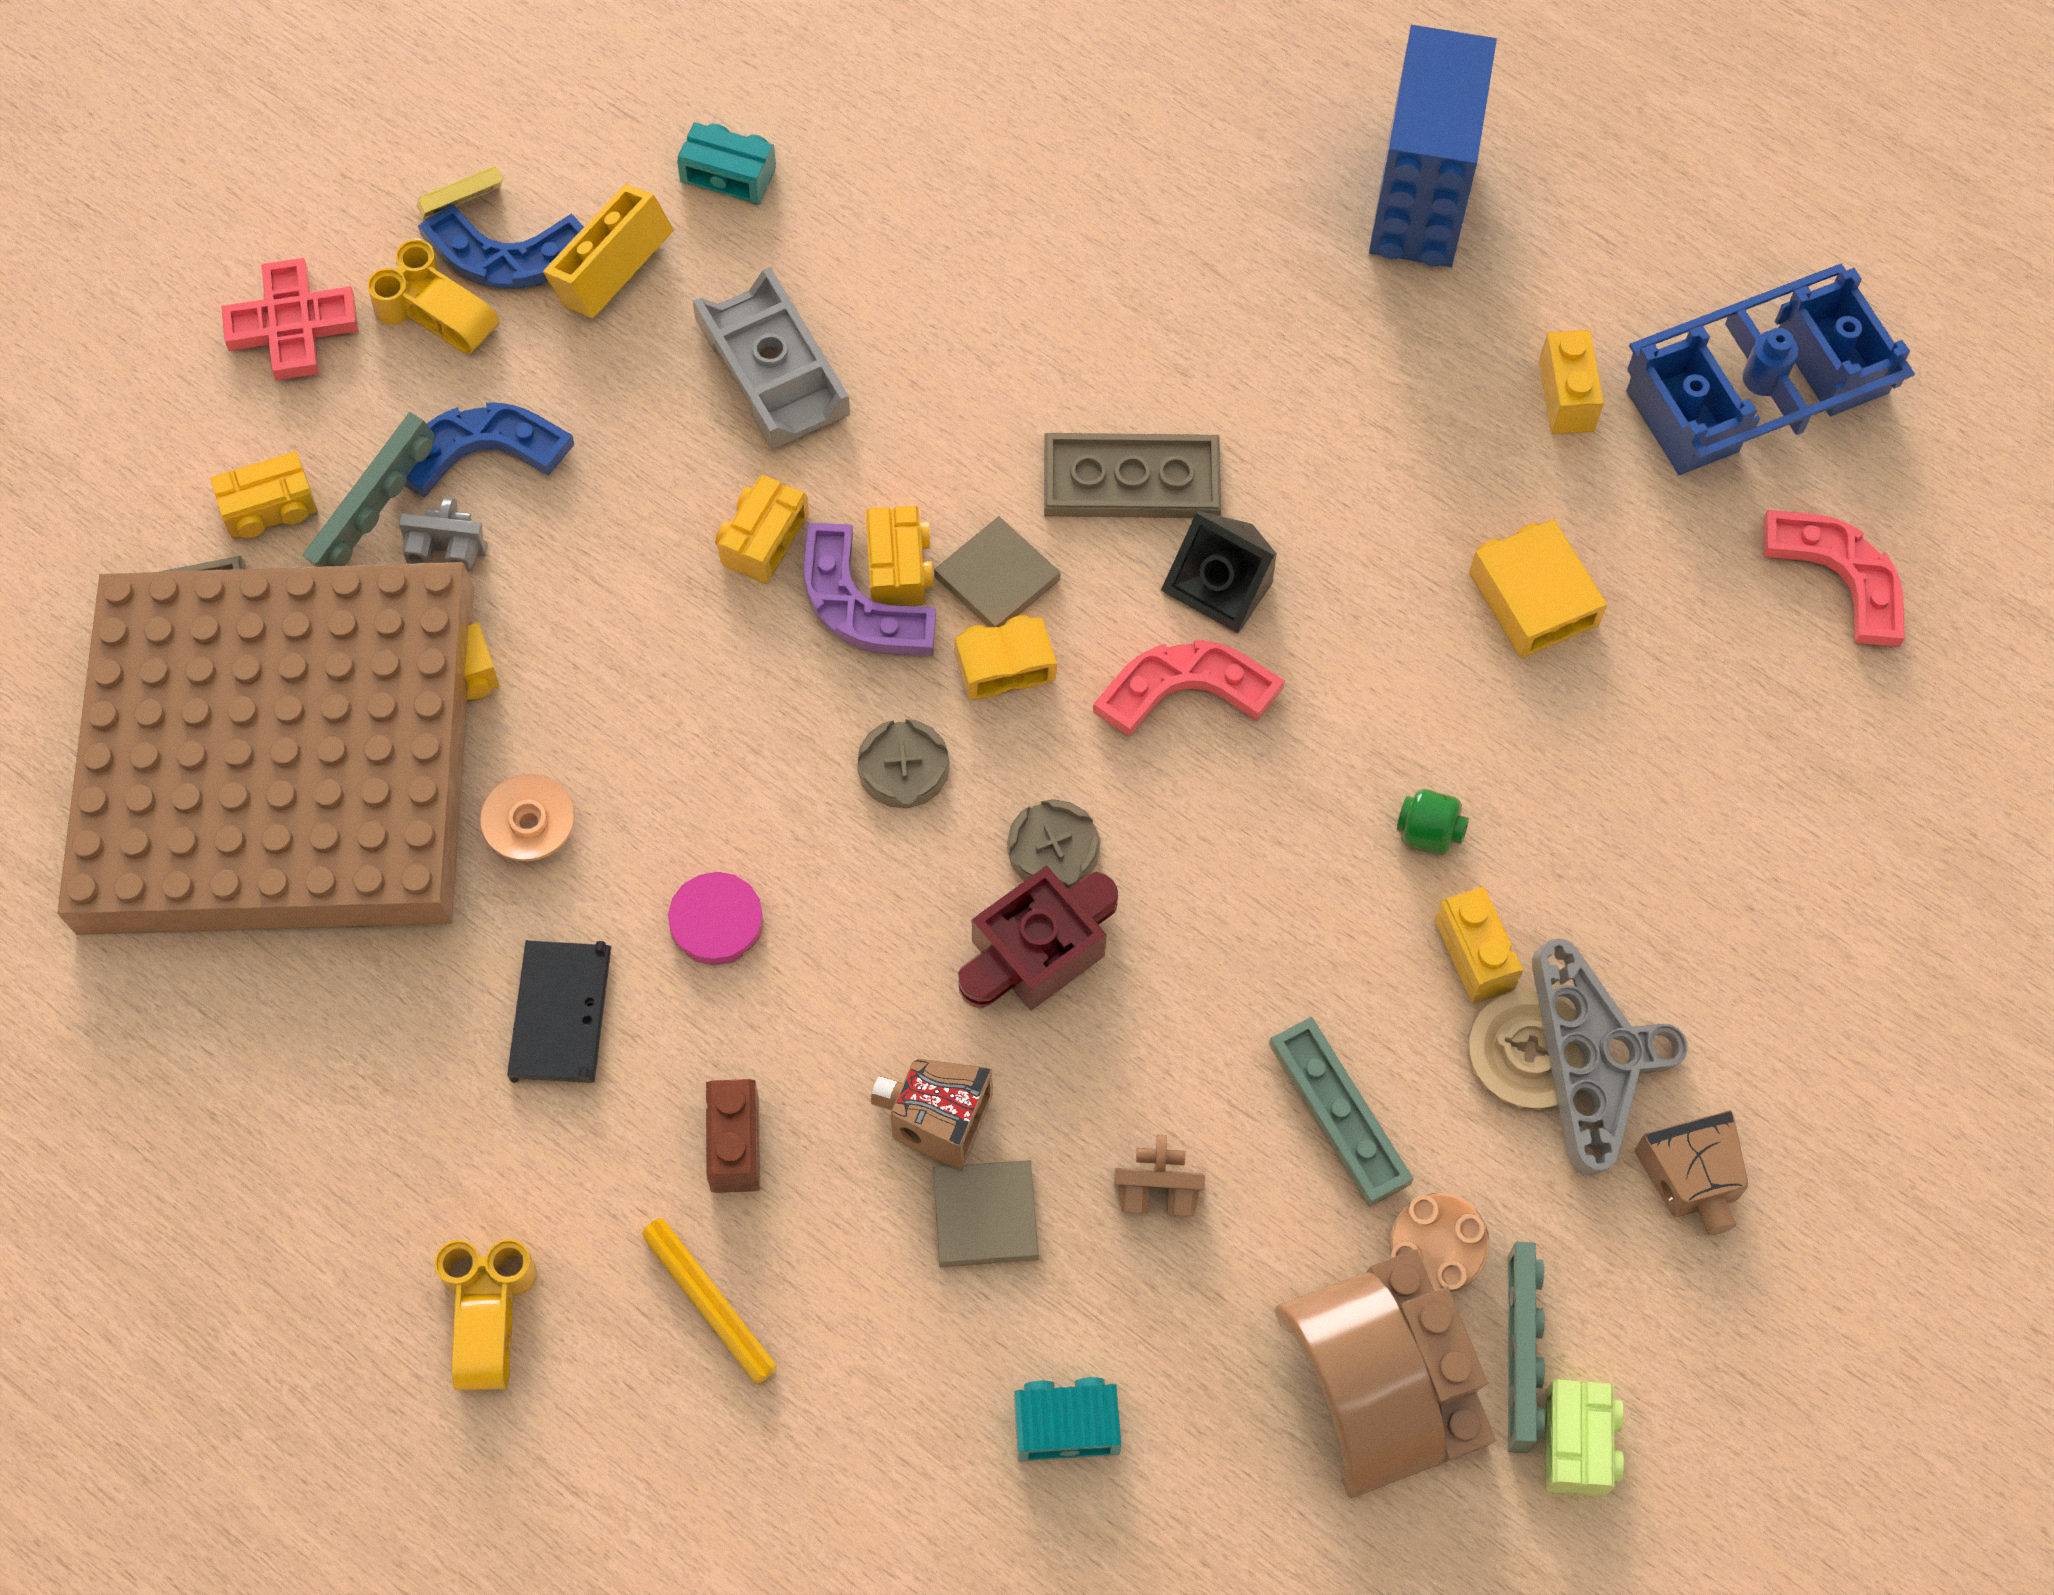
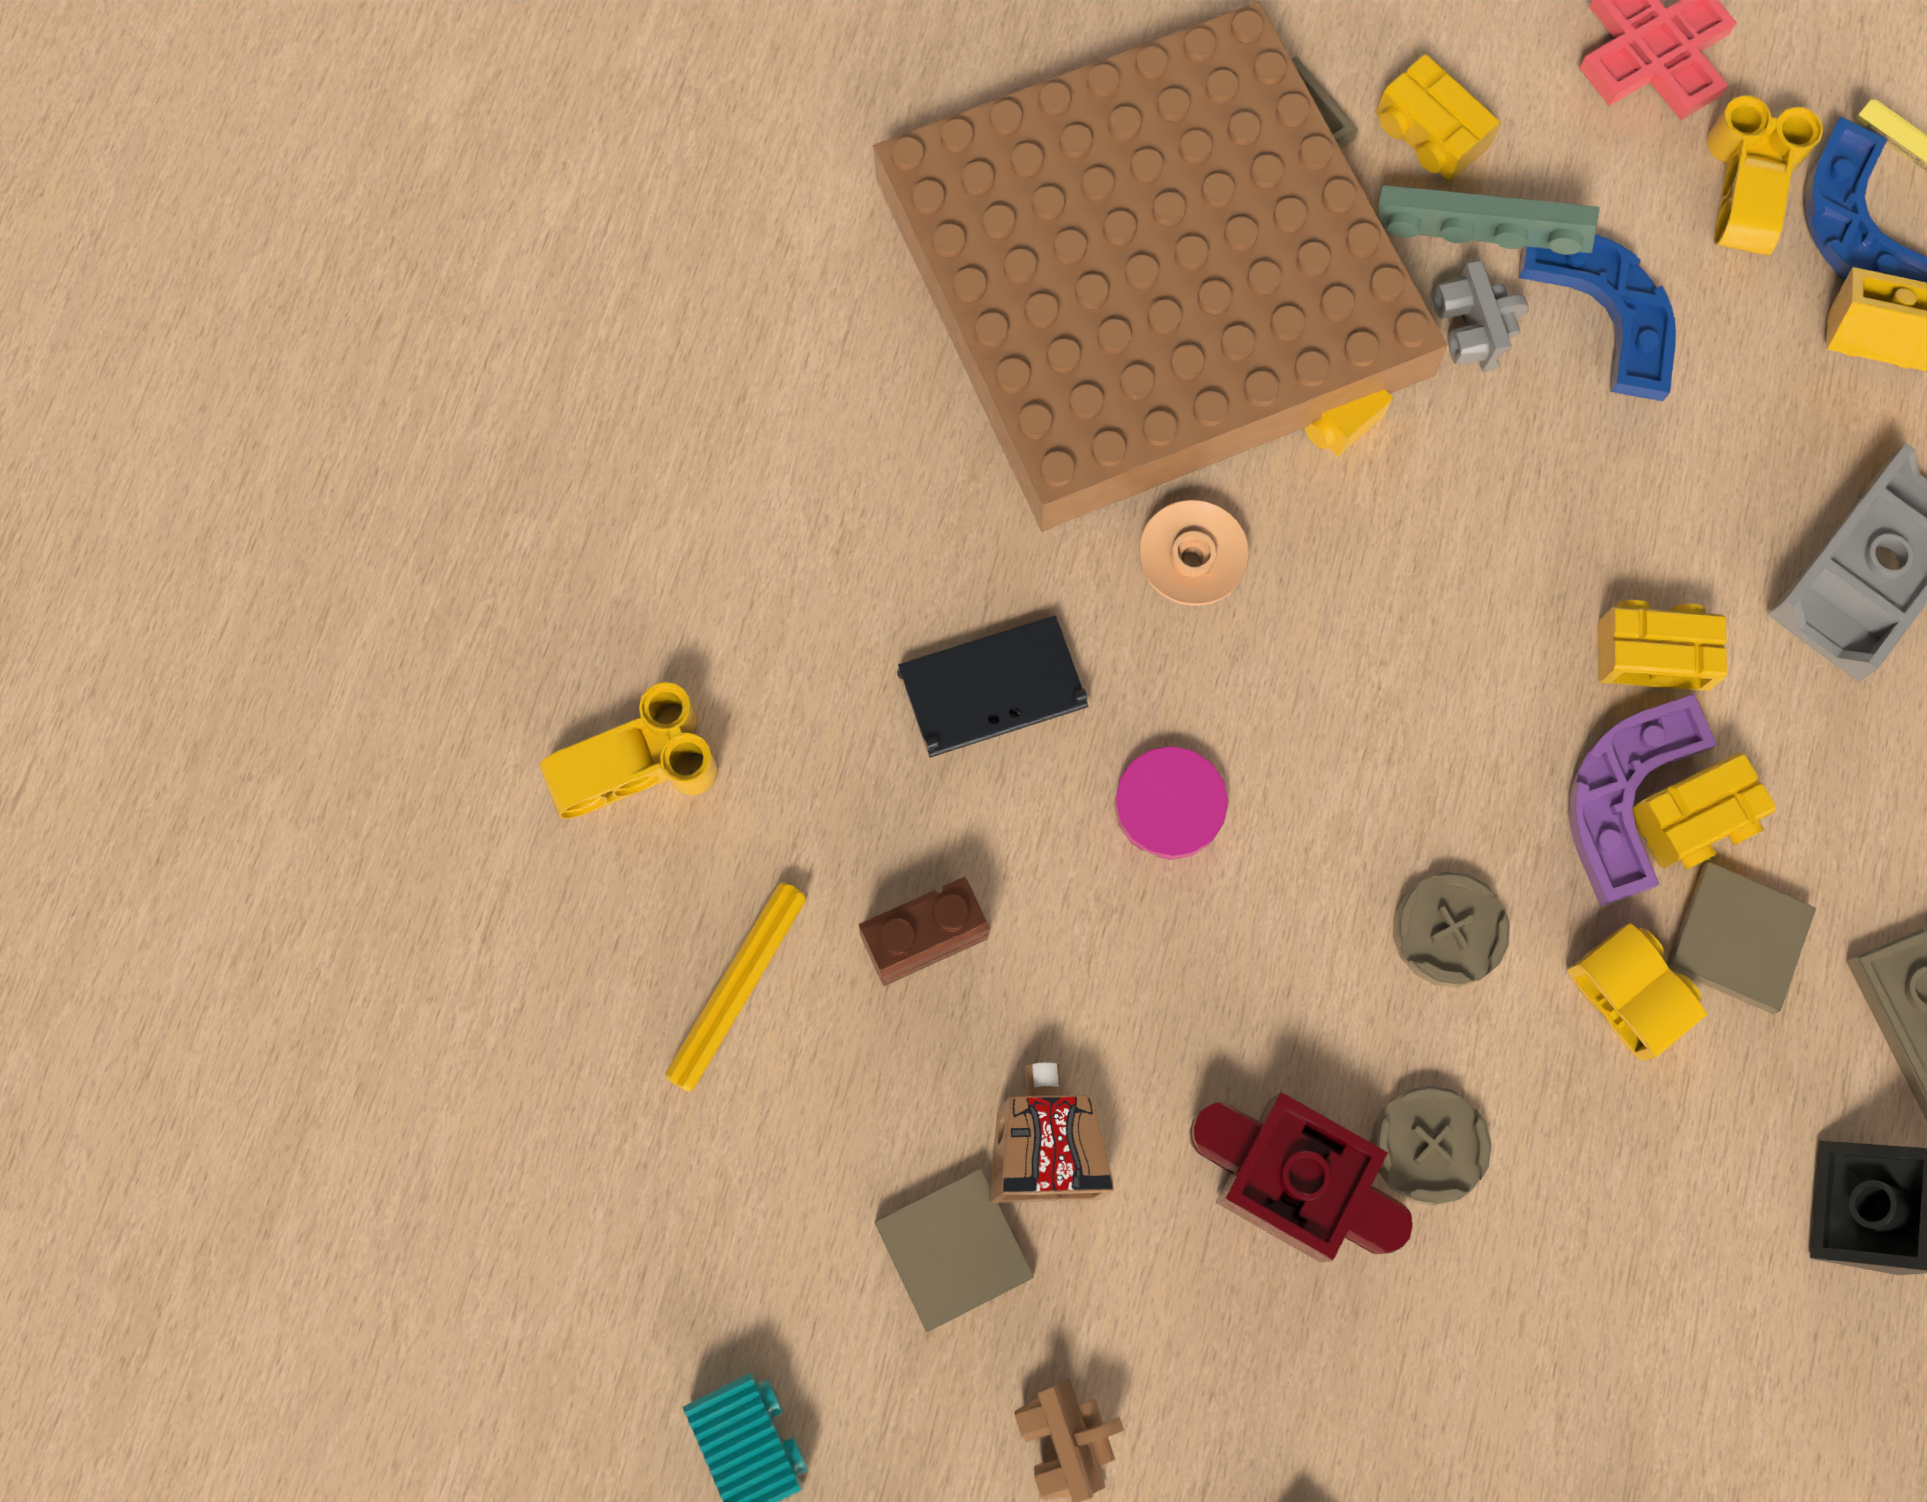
camera: 65 degrees right, 10 degrees up
(1181, 667) = (1742, 1231): coral plate -> none

